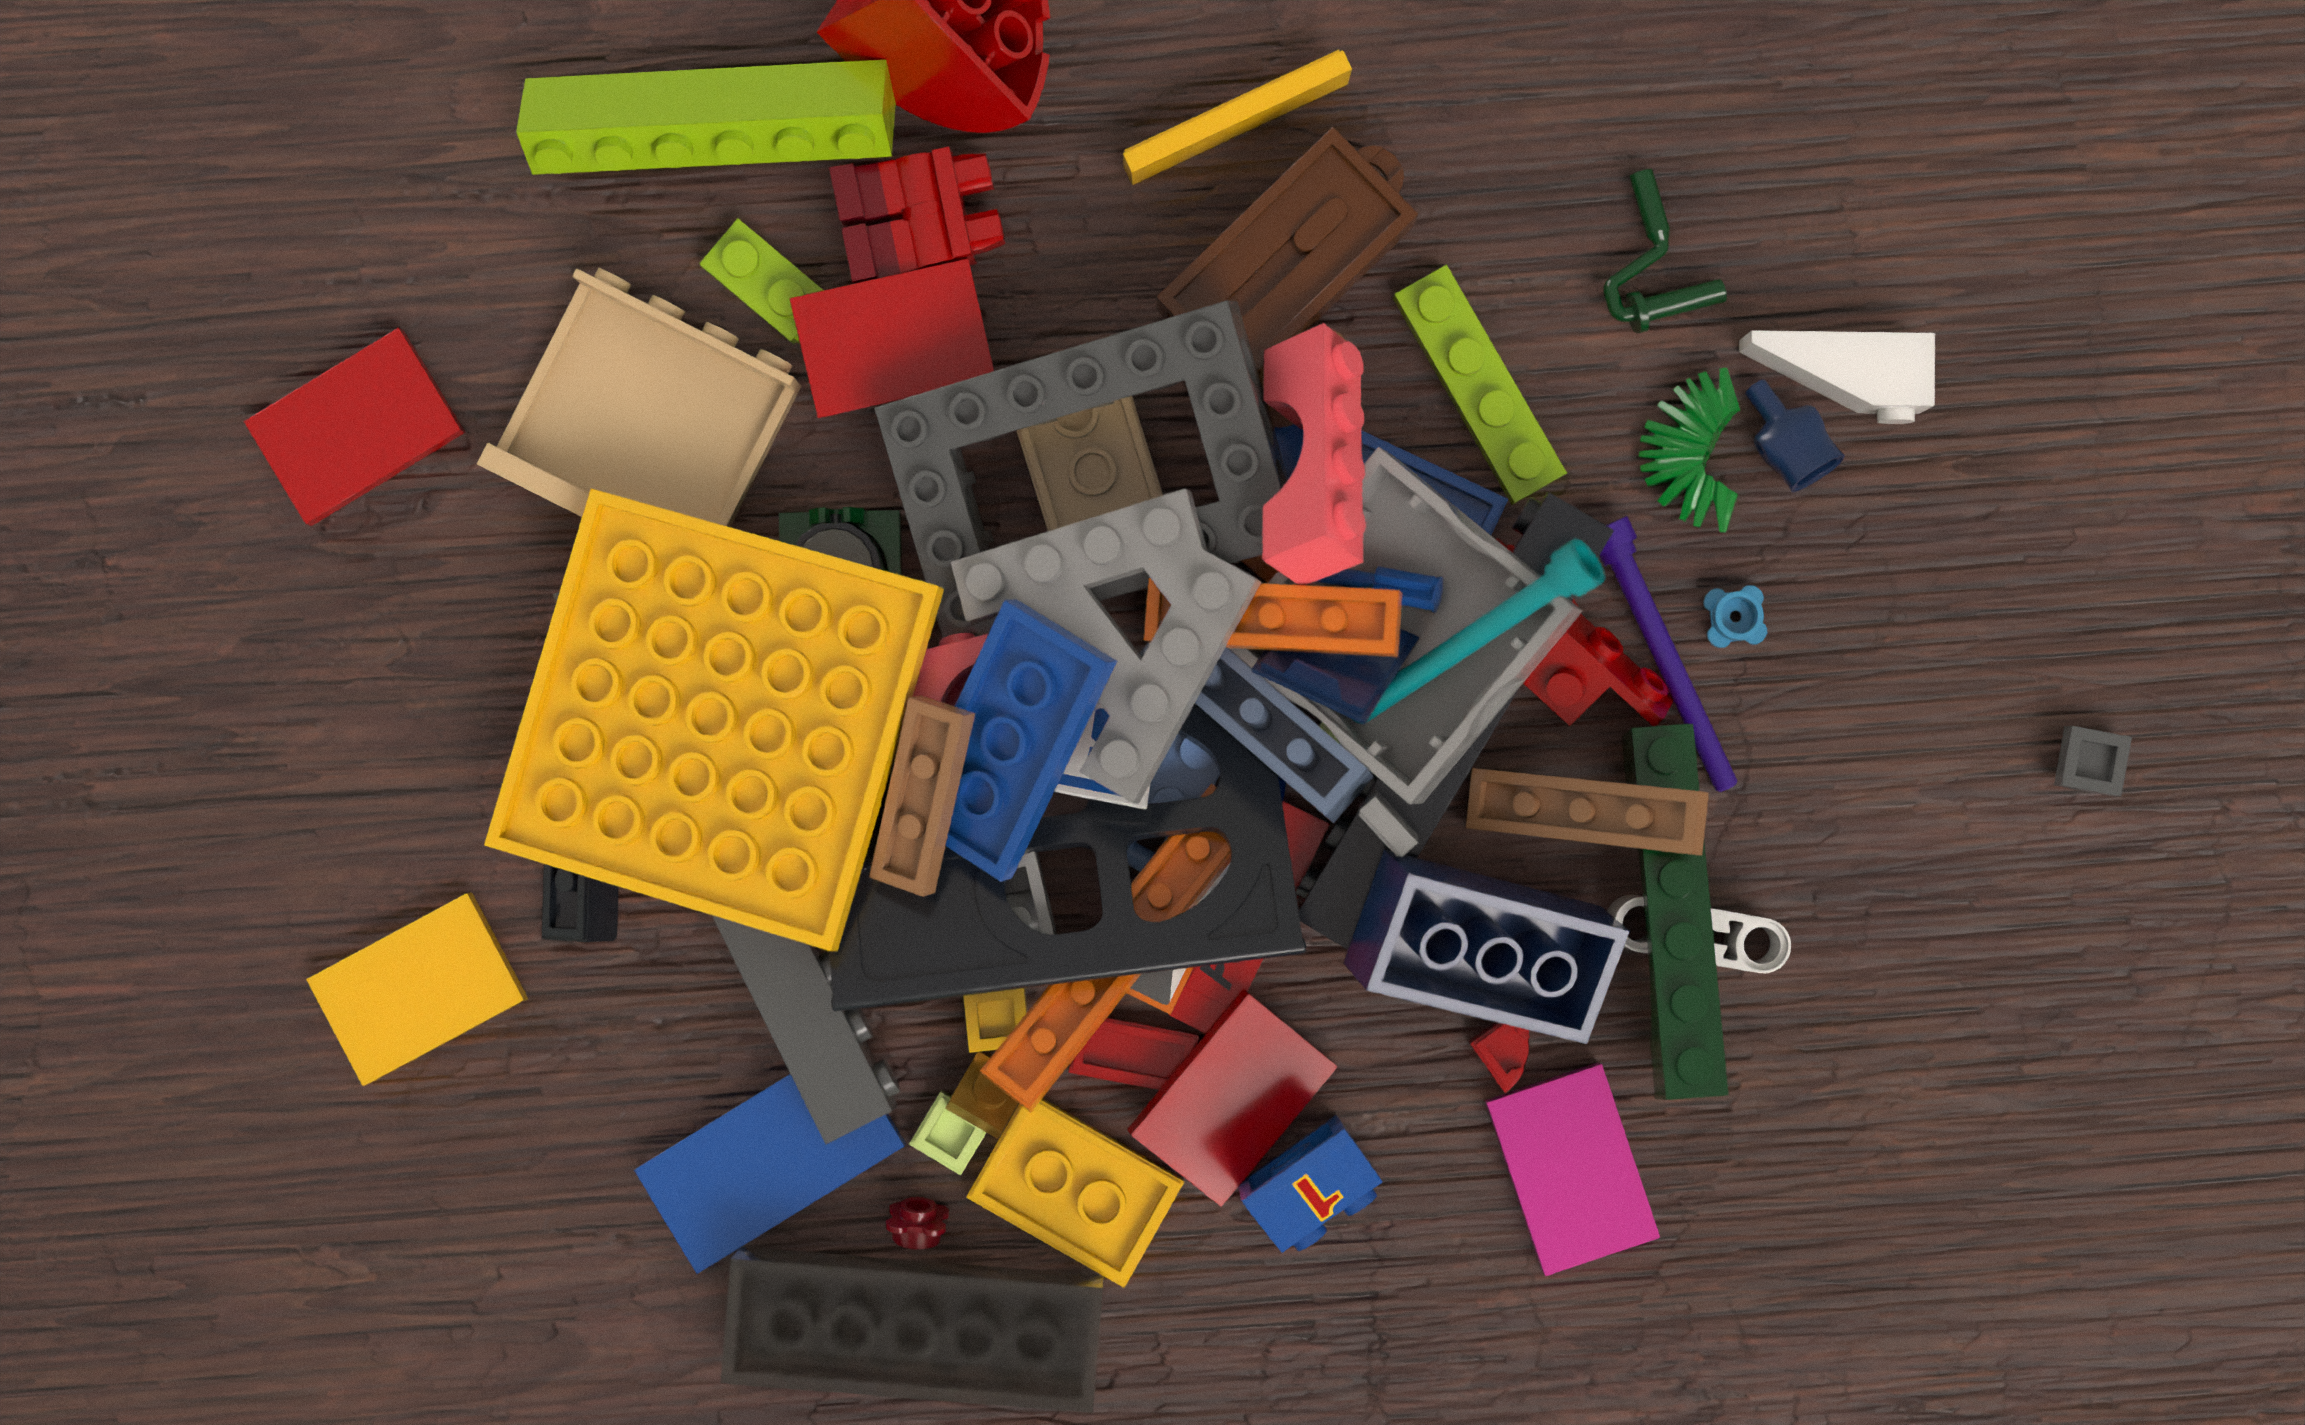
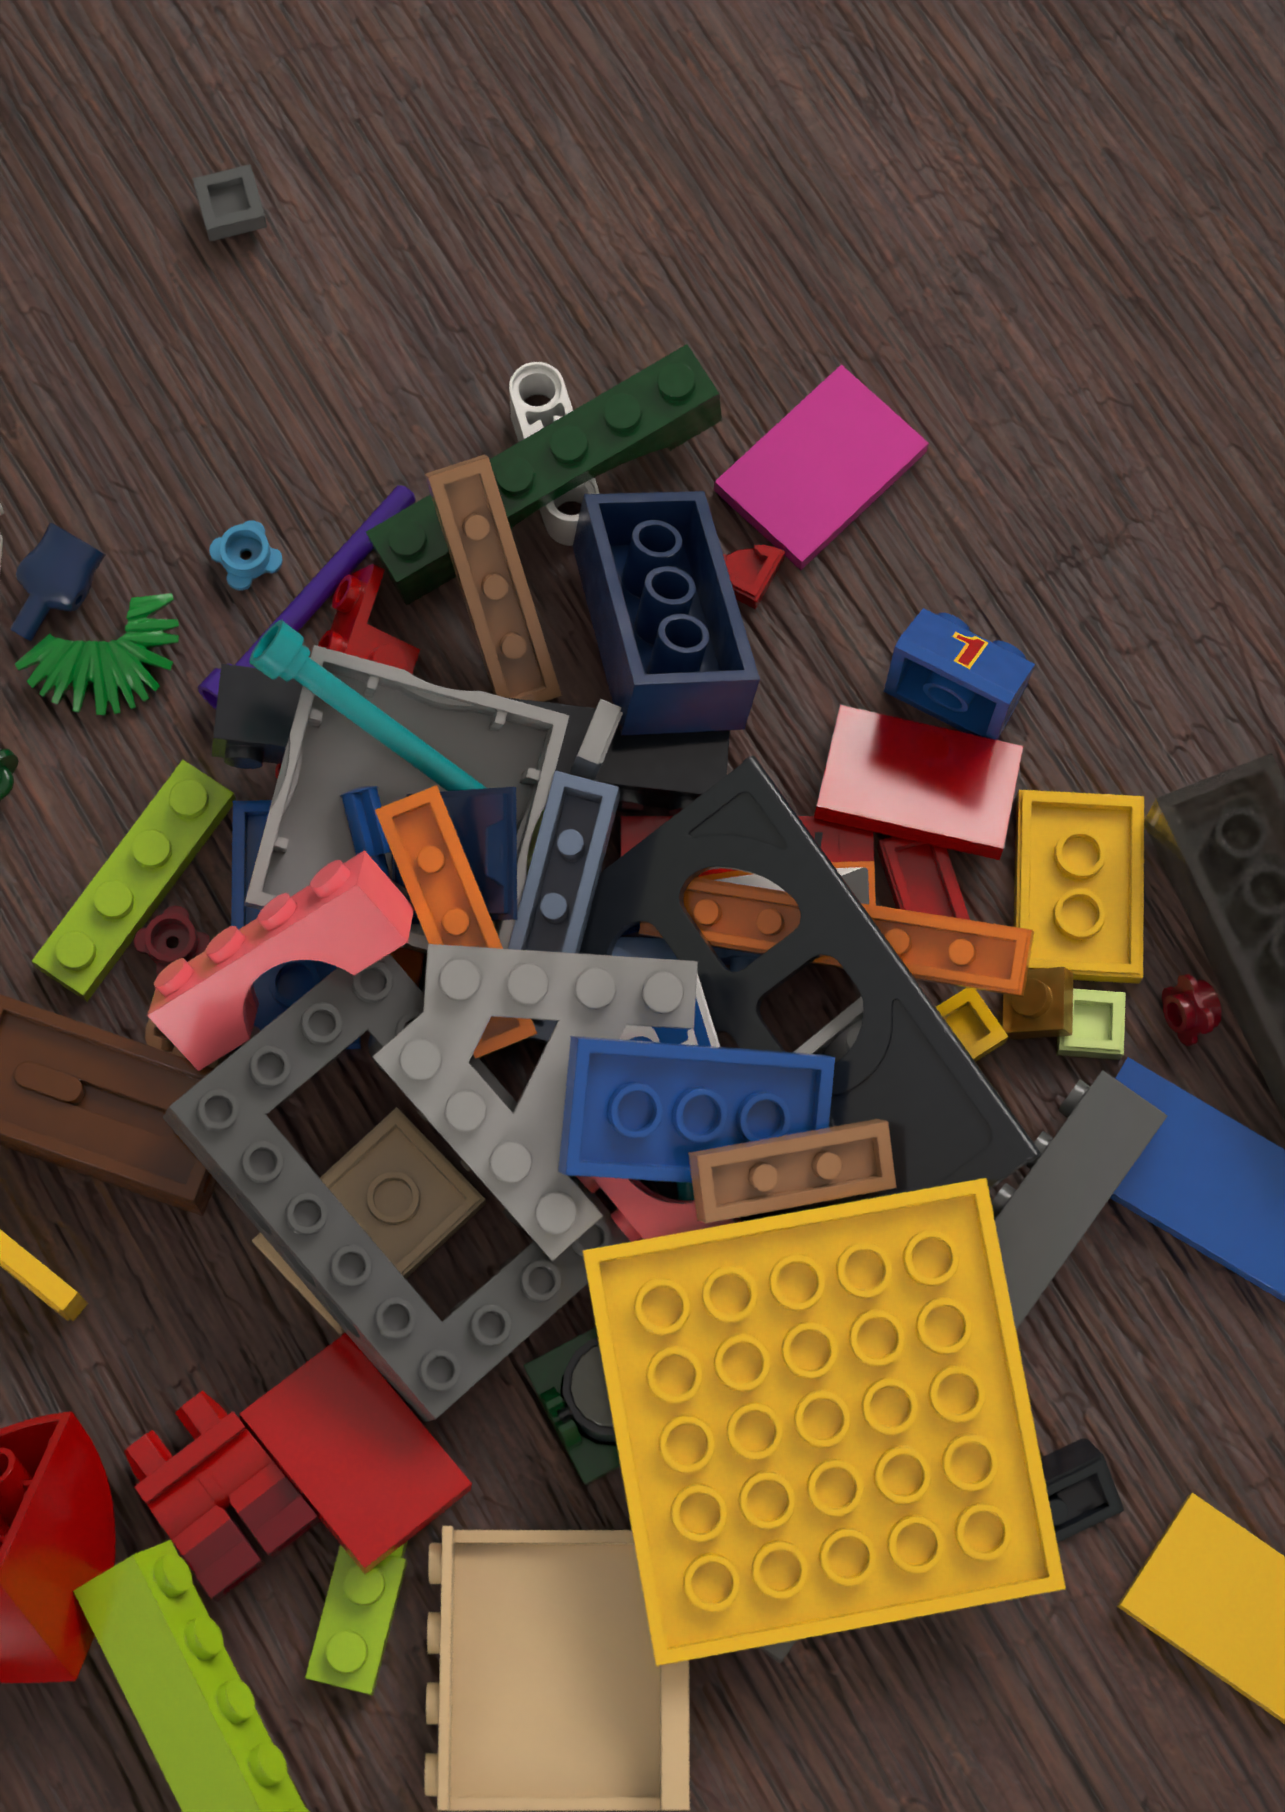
camera: 120 degrees left, 15 degrees down
(1415, 376) = (170, 924): none -> dark red plate

